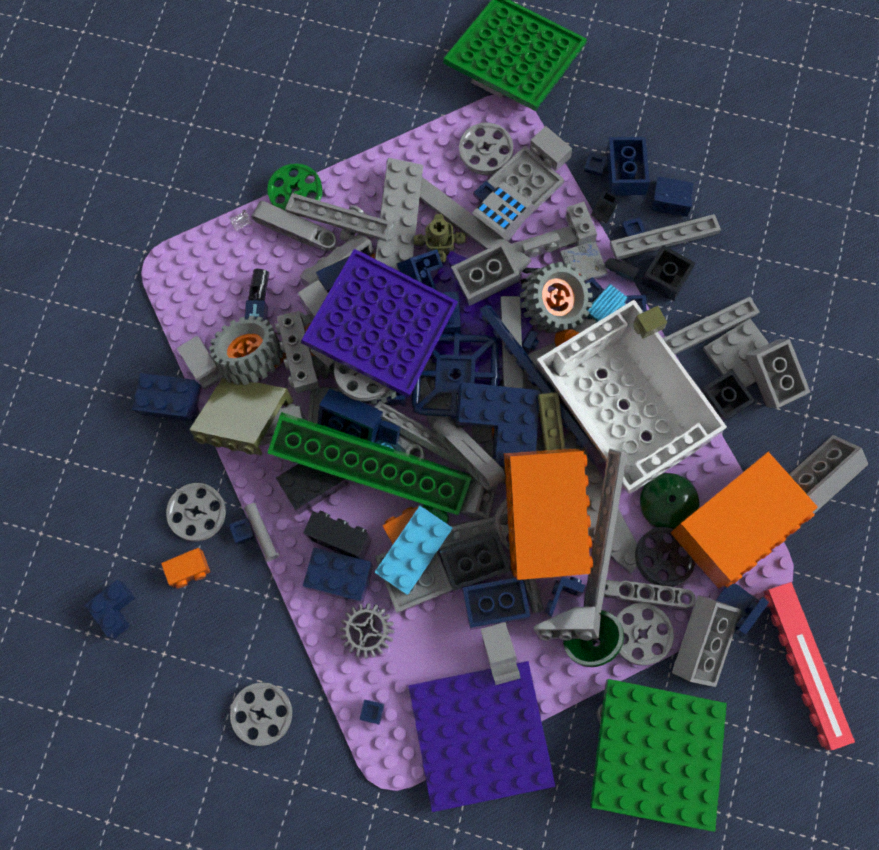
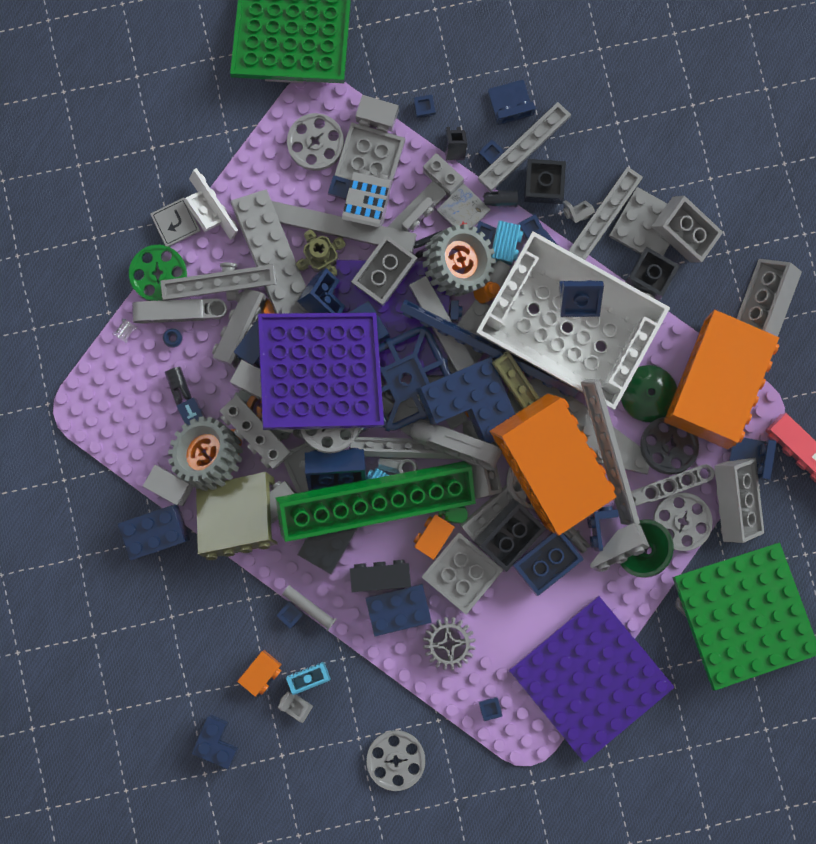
camera: 30 degrees left, 10 degrees up
(192, 503) = (231, 614): light grey wedge -> none
(199, 614) = (295, 706): none -> light grey bracket
(224, 594) = (308, 678): none -> medium azure brick
(276, 242) = (166, 338): none -> dark blue plate
(333, 157) = (175, 222): none -> light grey piece
(365, 157) = (207, 208): none -> white bracket
(389, 432) = (376, 462): dark blue plate -> none
(413, 550) = (453, 554): medium azure plate -> none
(500, 653) = (574, 604): light grey piece -> none
(627, 166) = (456, 95): dark blue brick -> none
(647, 375) = (581, 298): none -> dark blue bracket
(649, 322) = (558, 247): olive brick -> none
(687, 315) = (579, 212): none -> light grey bracket

